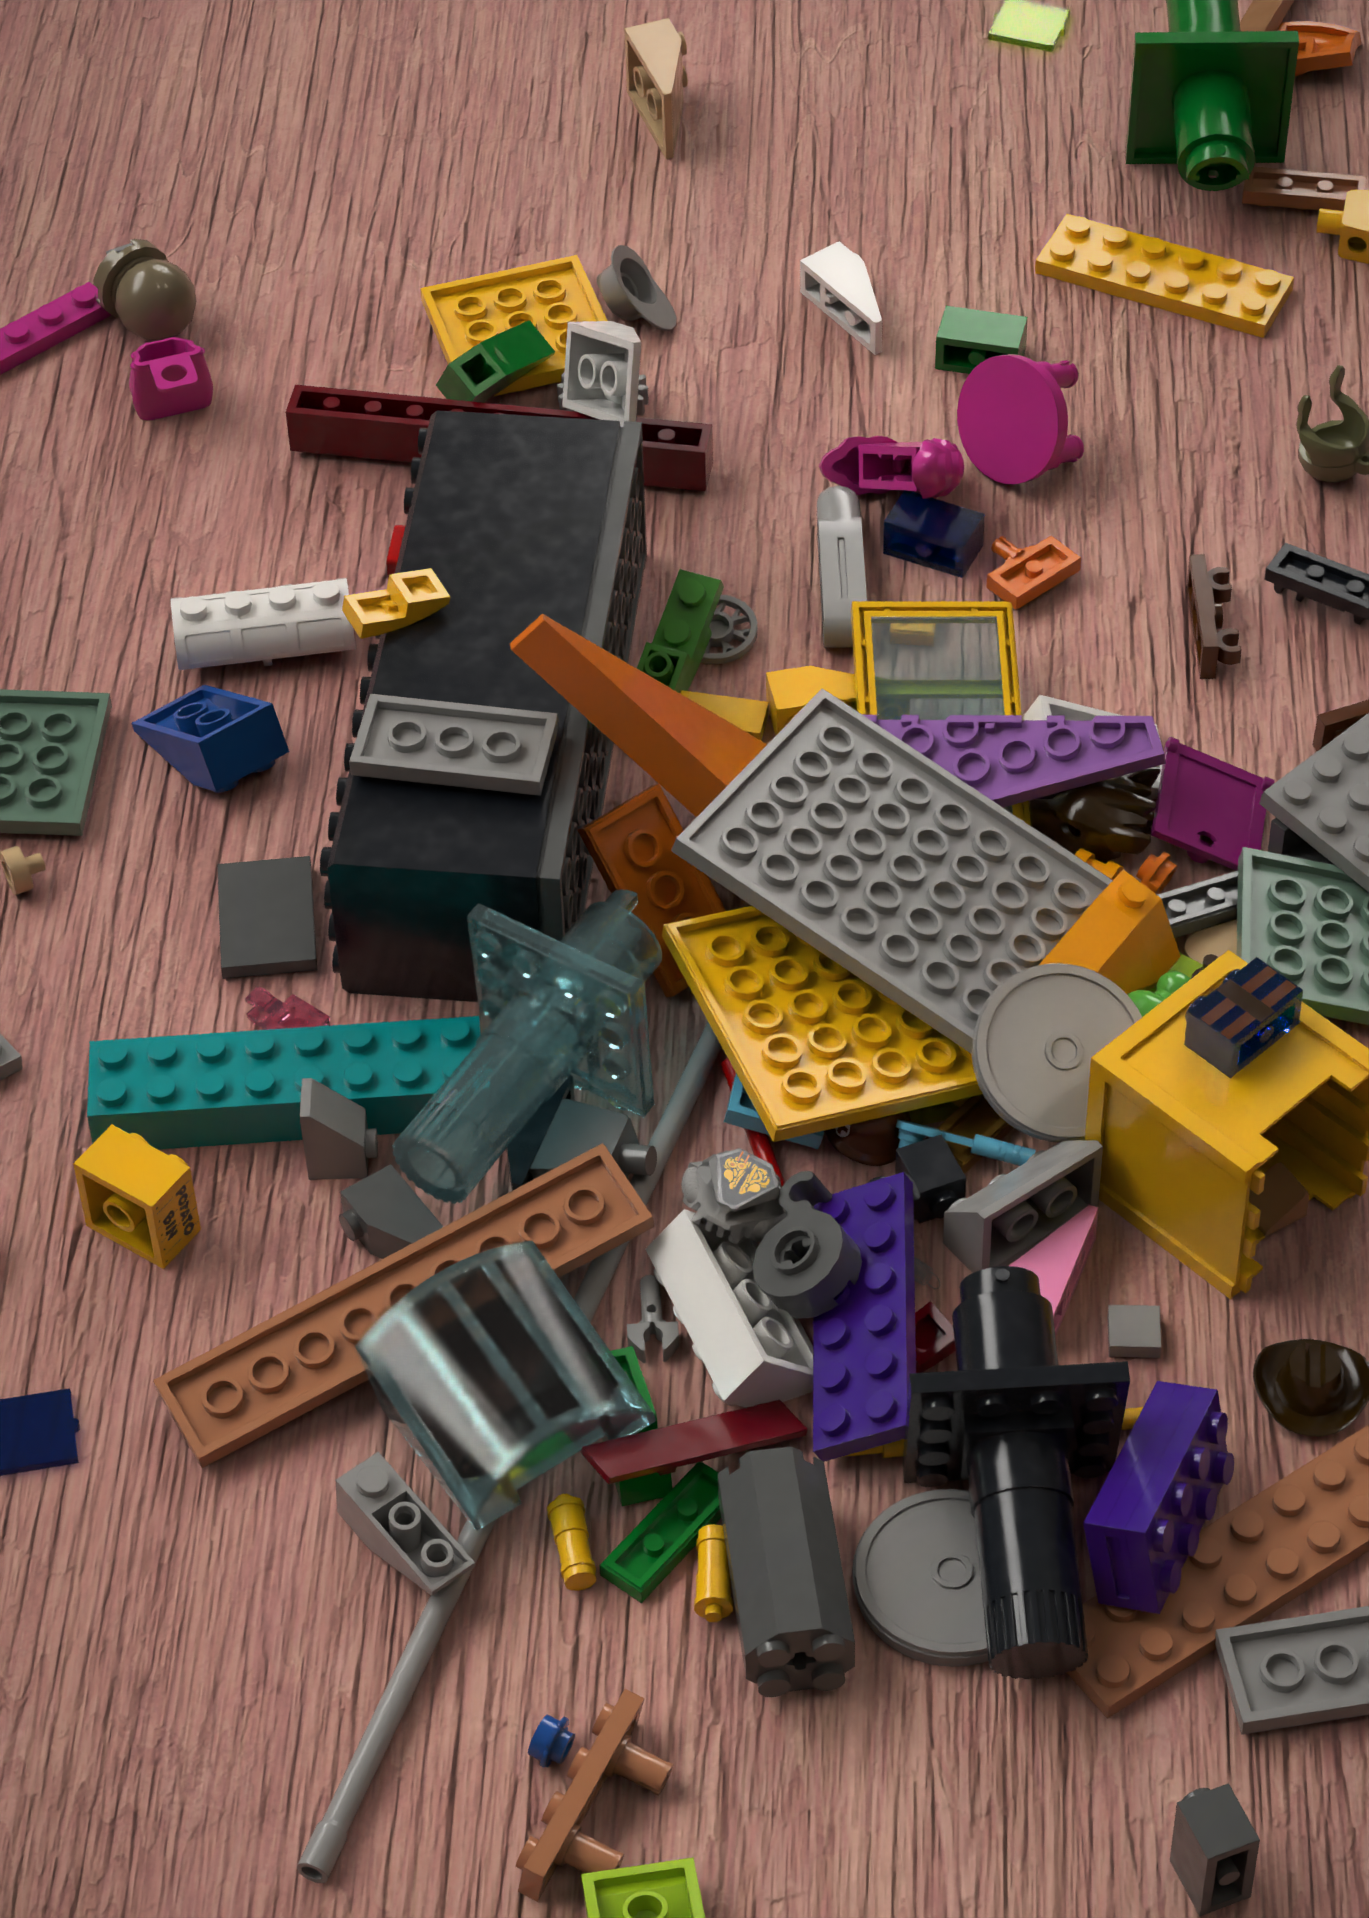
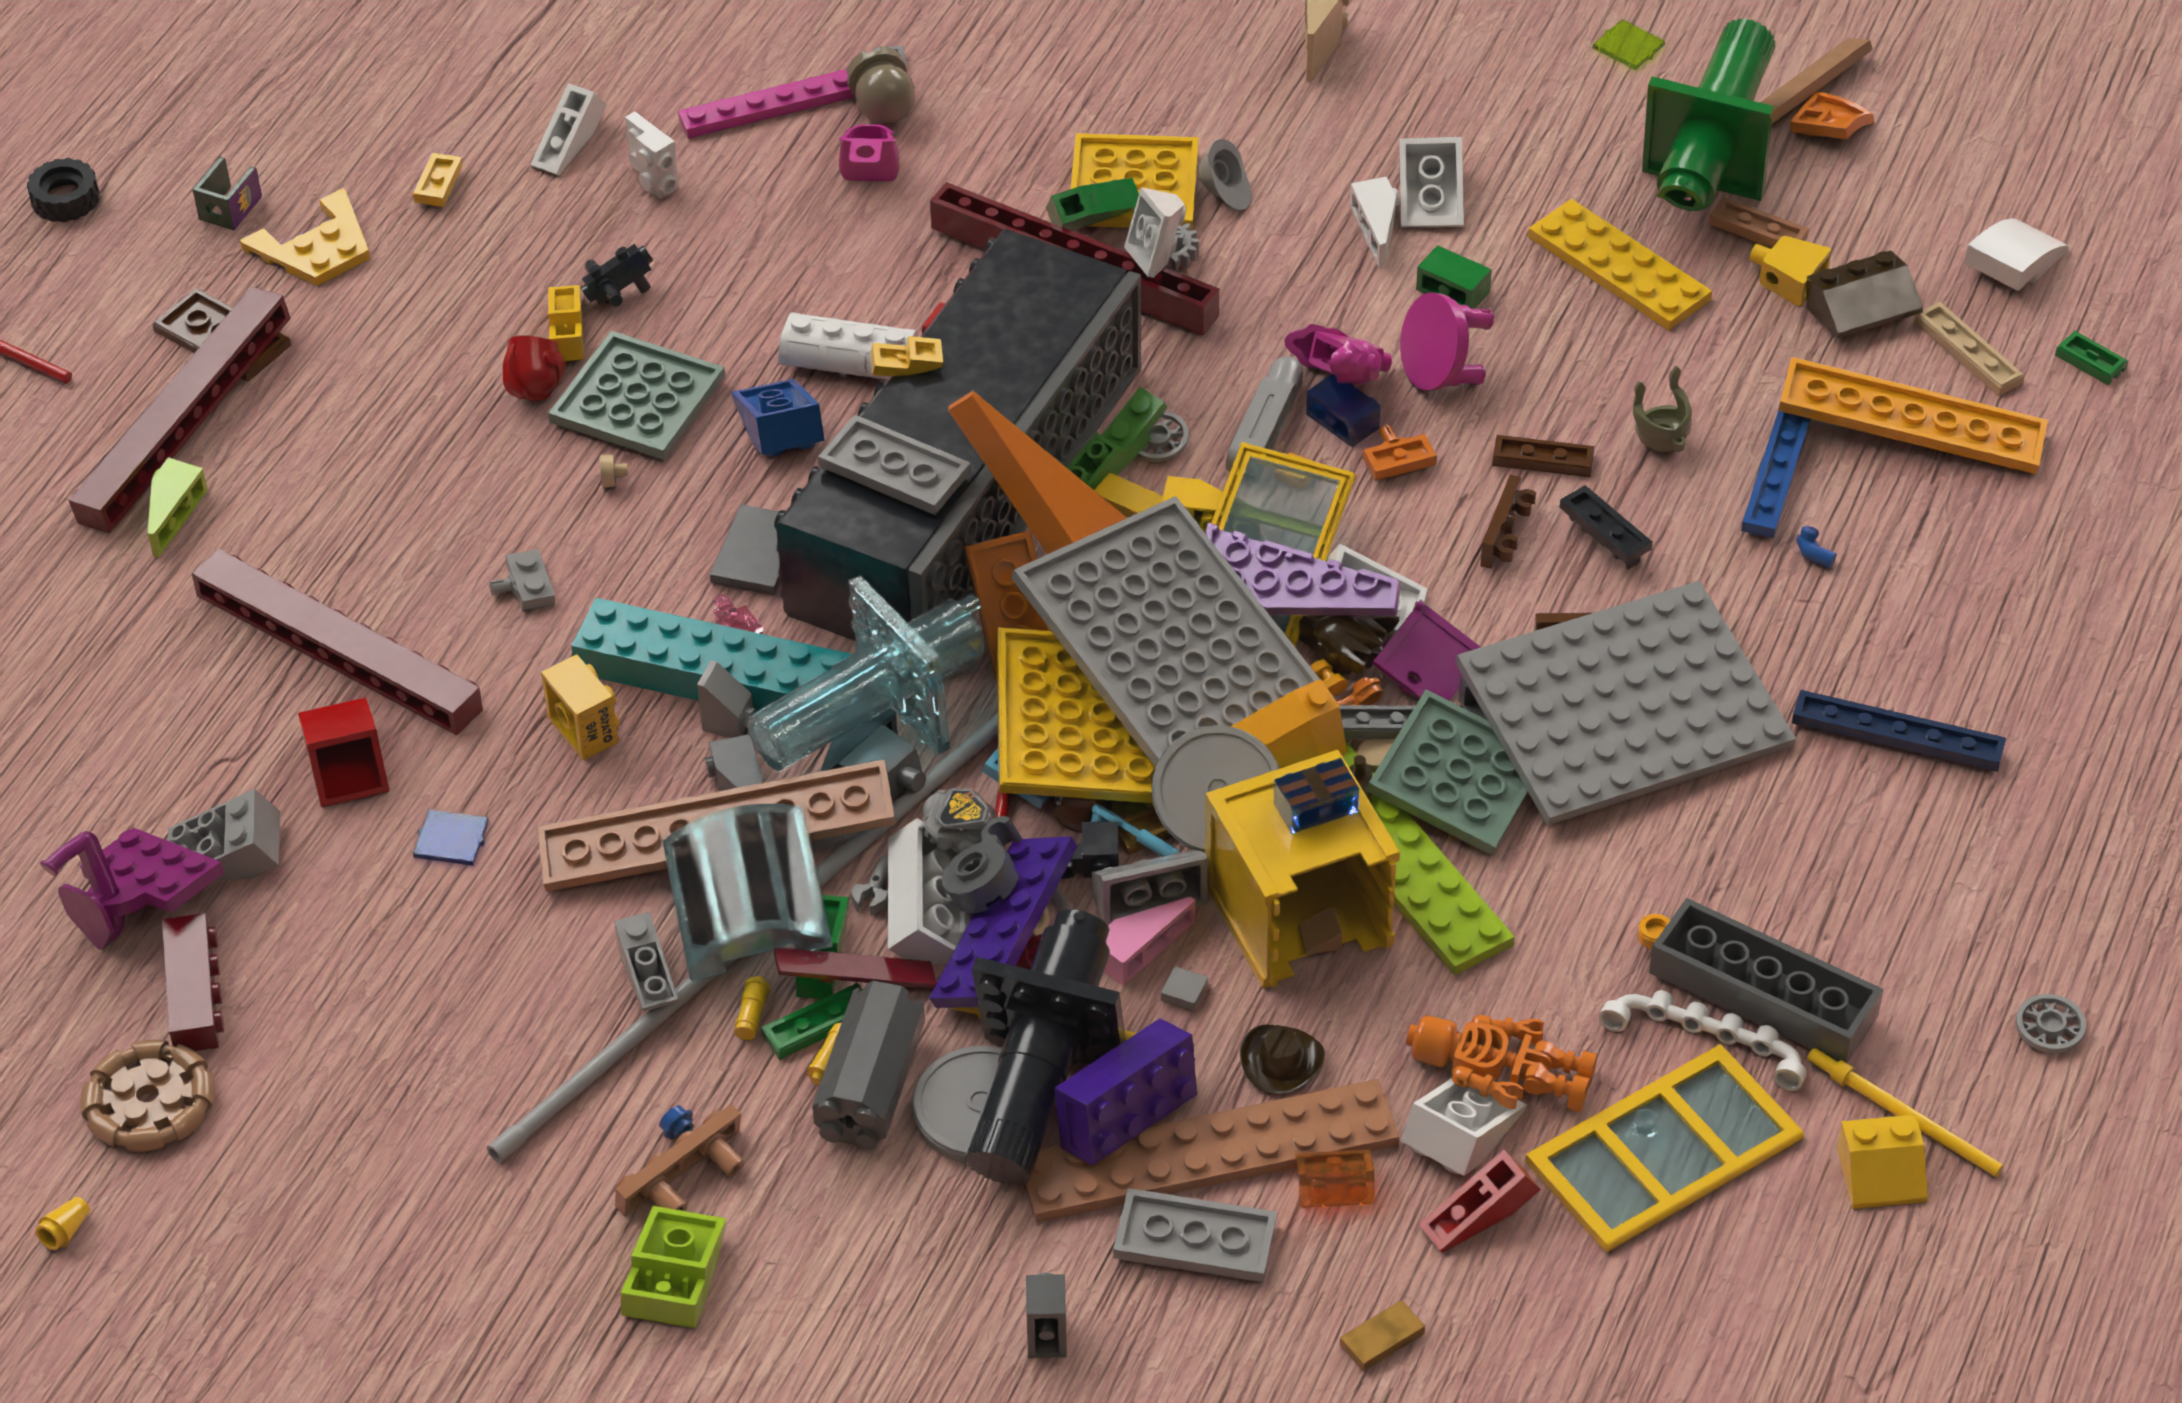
camera: 20 degrees right, 0 degrees up
(892, 234) = (1431, 182): none -> white slope
(1203, 524) = (1543, 455): none -> reddish brown tile

